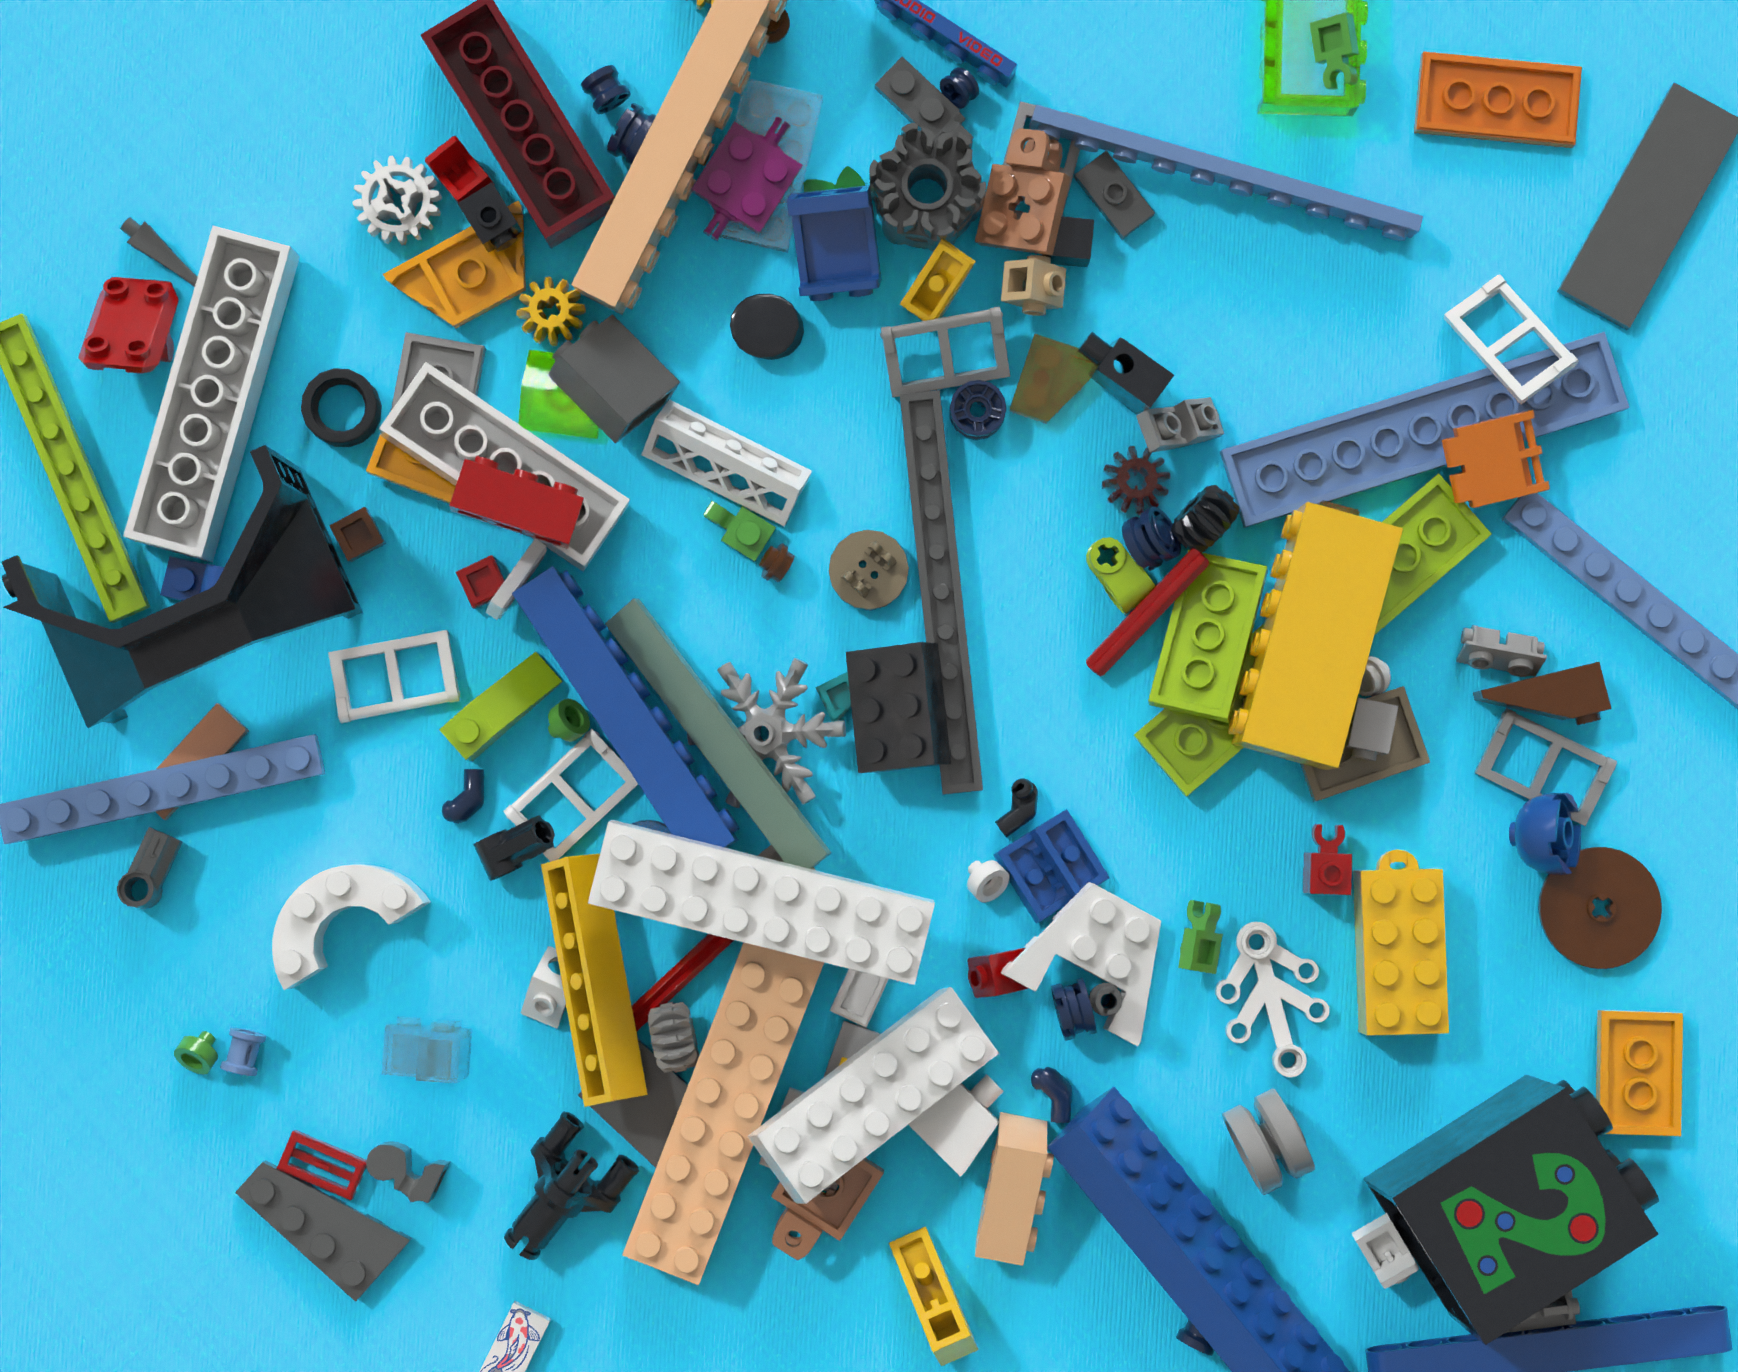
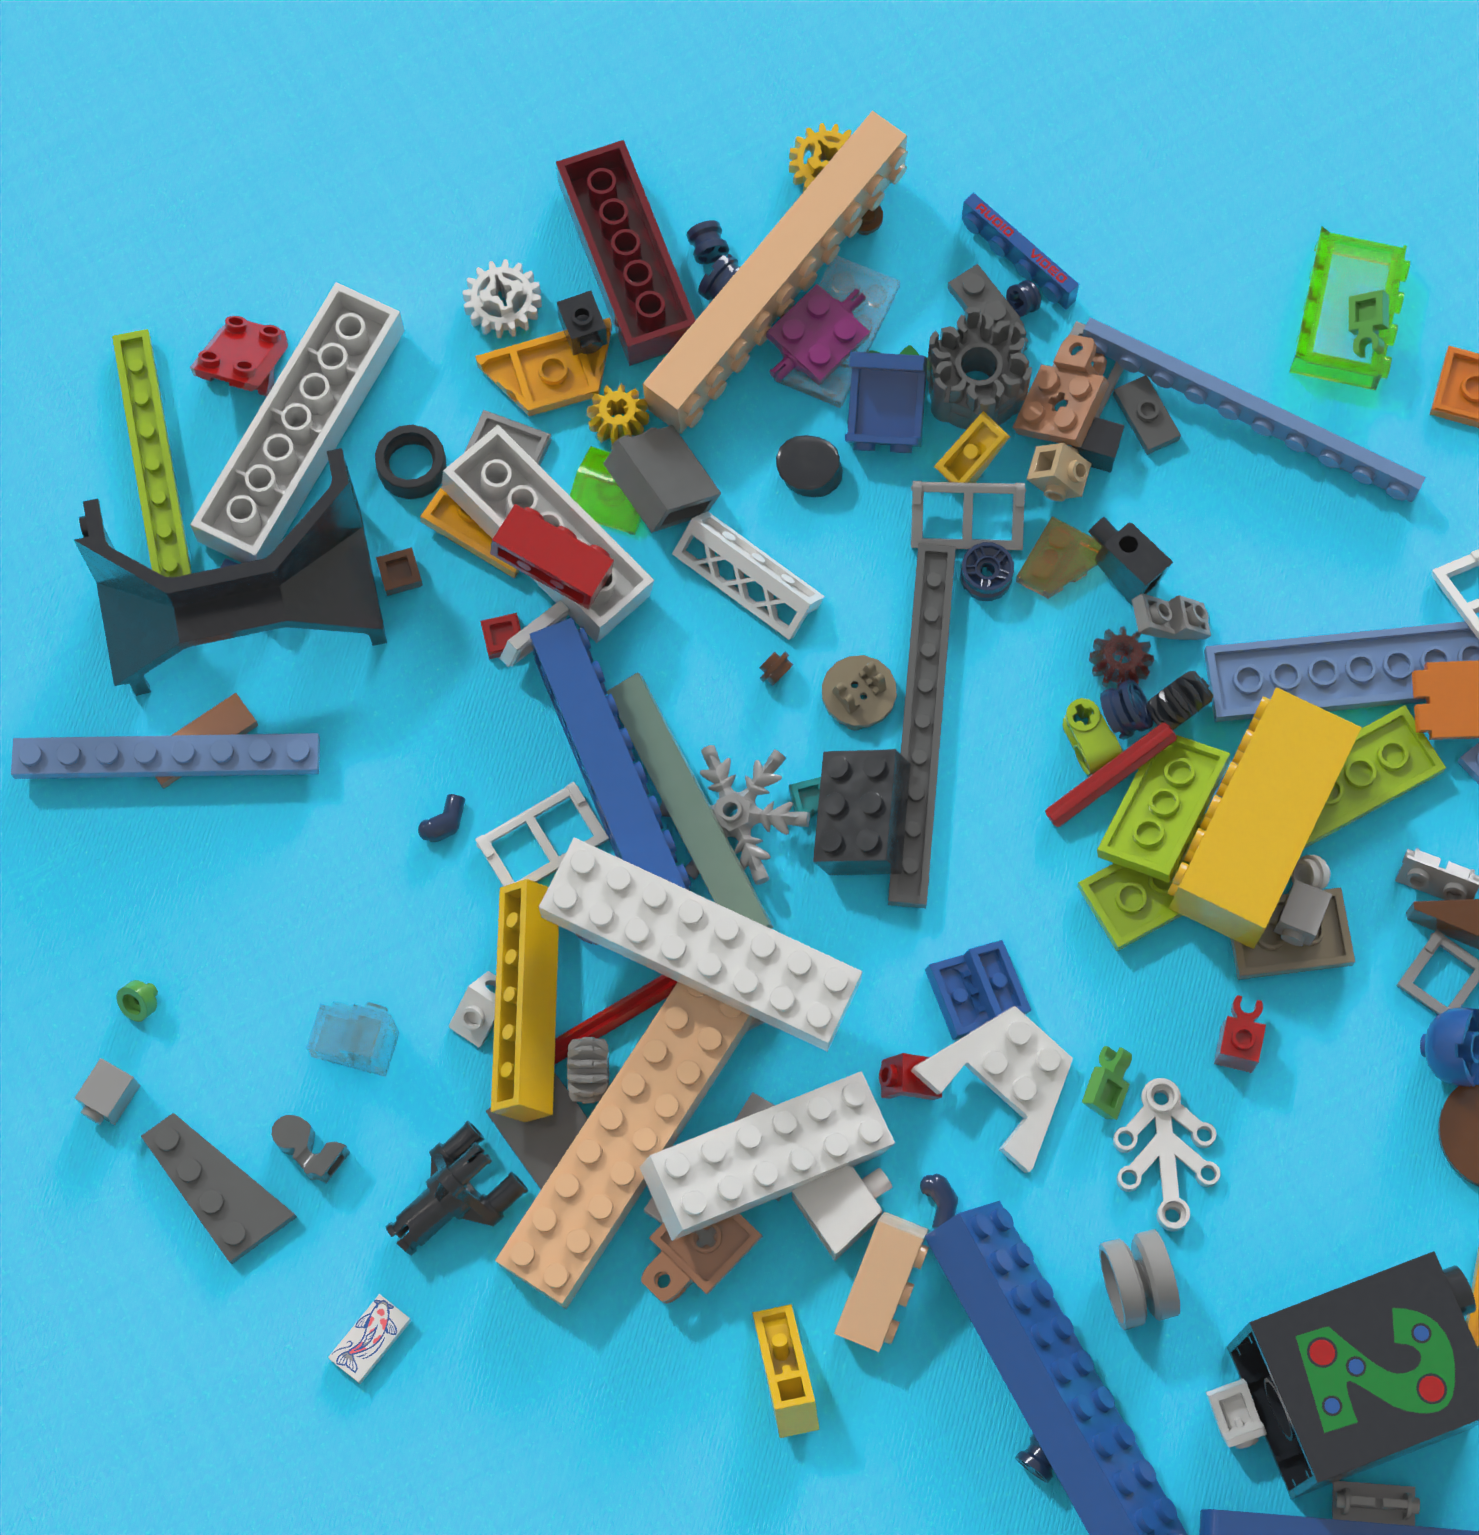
camera: 10 degrees right, 15 degrees down
(149, 242) = (275, 296): dark grey piece -> none
(151, 864) = (138, 823): dark grey piece -> none
(189, 1156) = (106, 1093): none -> light grey brick
(243, 1052) = (181, 1007): medium blue bush -> none
(311, 907) = (295, 880): white brick -> none
(330, 1150) = (256, 1148): red tile -> none
(389, 648) = (403, 678): white window -> none
(457, 169) = (559, 279): red bracket -> none
(500, 707) = (492, 746): lime slope -> none
(509, 848) = (468, 872): black piece -> none
(568, 720) = (553, 769): bright green tile -> none
(744, 532) = (751, 637): bright green plate -> none
(858, 996) = (777, 1065): white tile -> none
(987, 880) = (915, 989): white tile -> none
(1022, 807) = (961, 929): black arm -> none
(1073, 1009) = (974, 1121): dark blue wheel -> none
(1114, 1003) = (1003, 1106): dark grey pin -> none
(1400, 948) = (1298, 1128): yellow piece -> none

